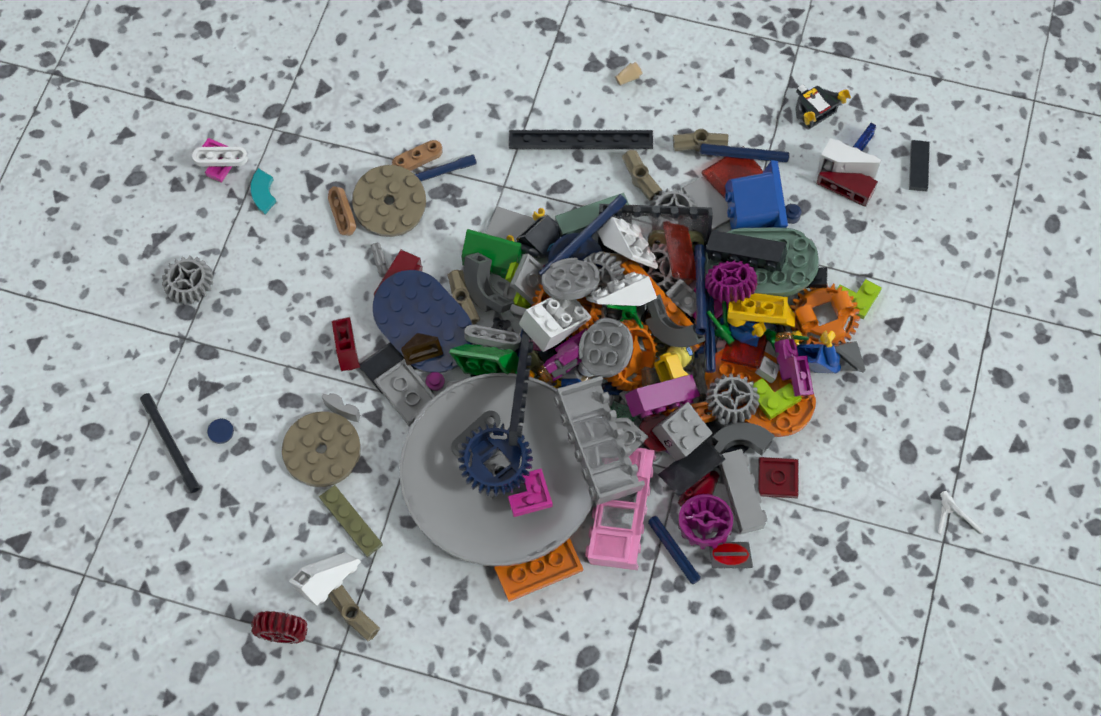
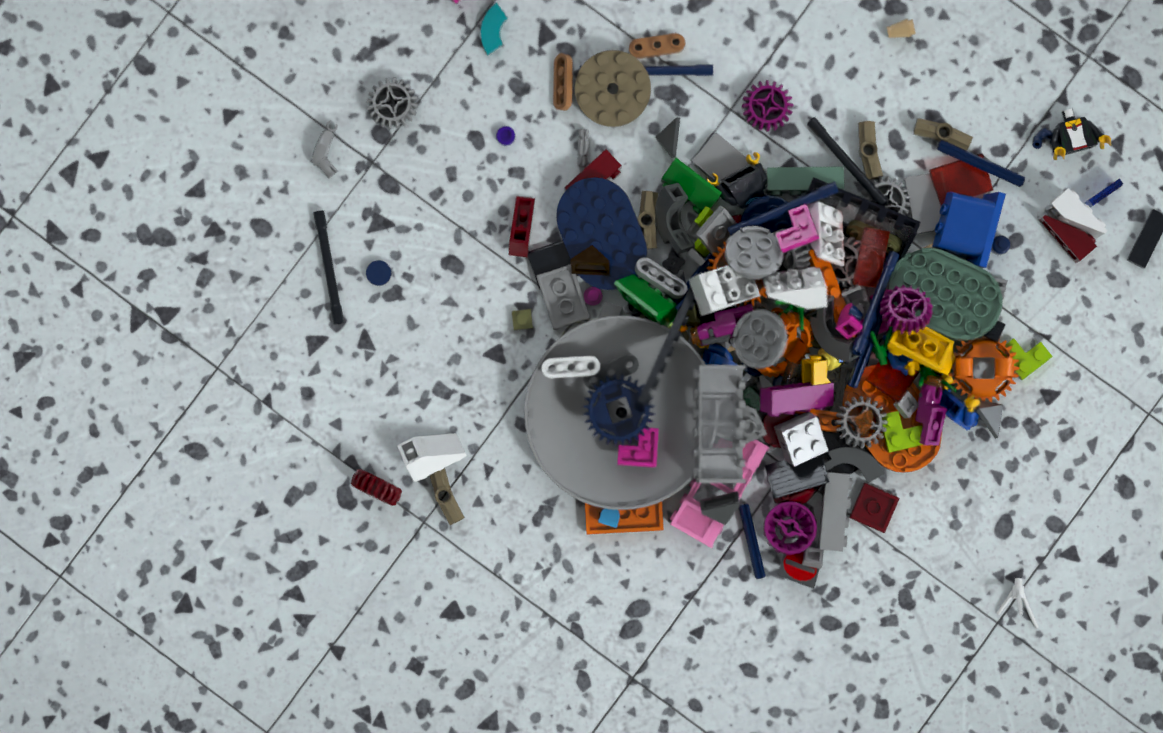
camera: 20 degrees right, 20 degrees up
(131, 342) = (321, 150): none -> light grey arm
(304, 273) = (505, 135): none -> dark purple tile
(321, 468) = (470, 344): dark tan plate -> none
(336, 405) = (492, 284): light grey slope -> none
(351, 521) = (470, 405): olive plate -> none
(374, 425) = (522, 319): none -> olive plate
(425, 439) = (562, 367): none -> white plate
(456, 223) = (669, 137): none -> dark grey slope
(525, 573) = (609, 517): none -> dark azure tile
(546, 170) = (774, 109): none -> magenta gear
(580, 139) = (825, 87): black plate -> none
(592, 175) = (819, 130): none -> black piece
(606, 245) = (802, 232): none -> dark pink plate
(631, 521) = (720, 507): none -> dark grey slope
(684, 309) = (850, 318): none -> dark pink leg
(734, 393) = (864, 421): none -> clear orange tile
(739, 542) = (813, 557): none -> light grey tile
(748, 249) = (934, 280): black brick -> none
(788, 114) = (1042, 134): none -> dark blue arm

